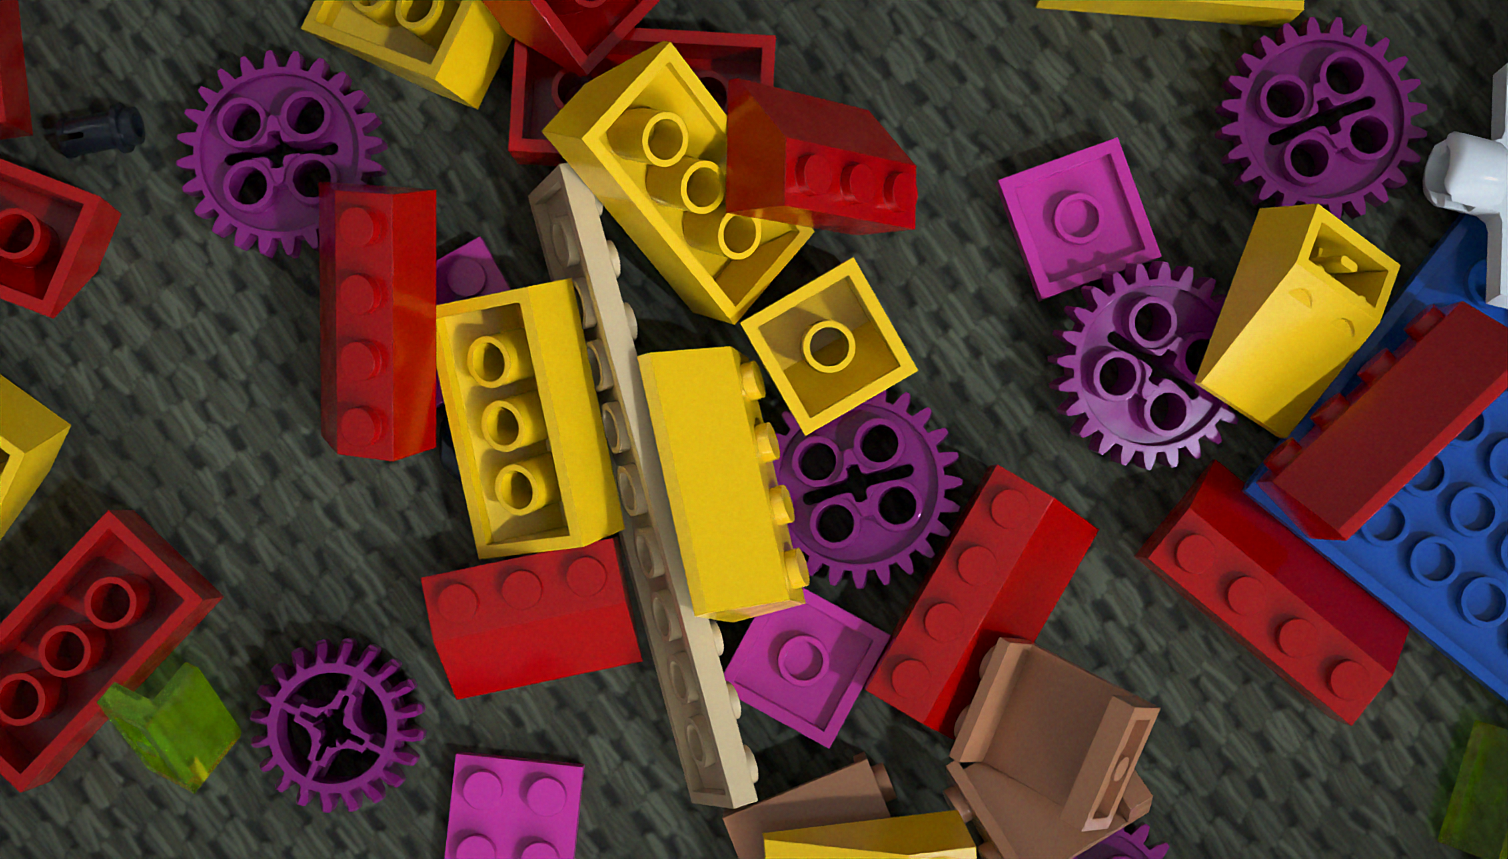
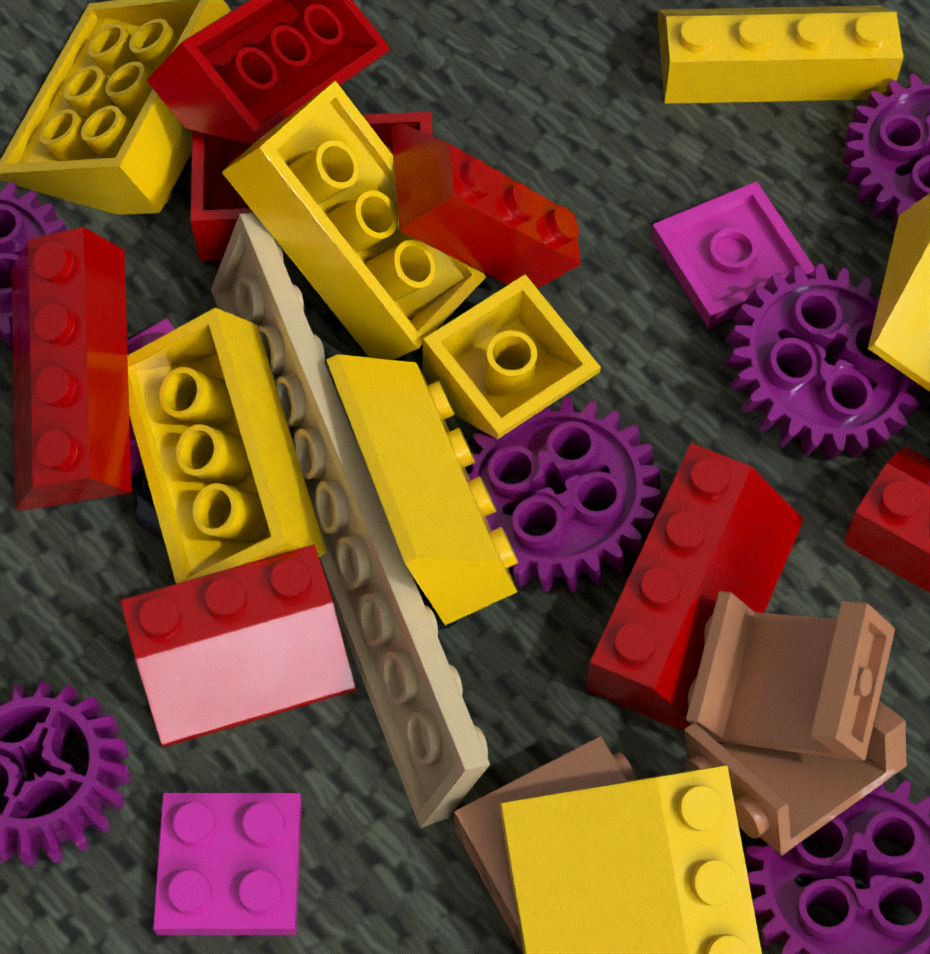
camera: 10 degrees left, 25 degrees down
(806, 665) = (526, 666): dark pink plate -> none

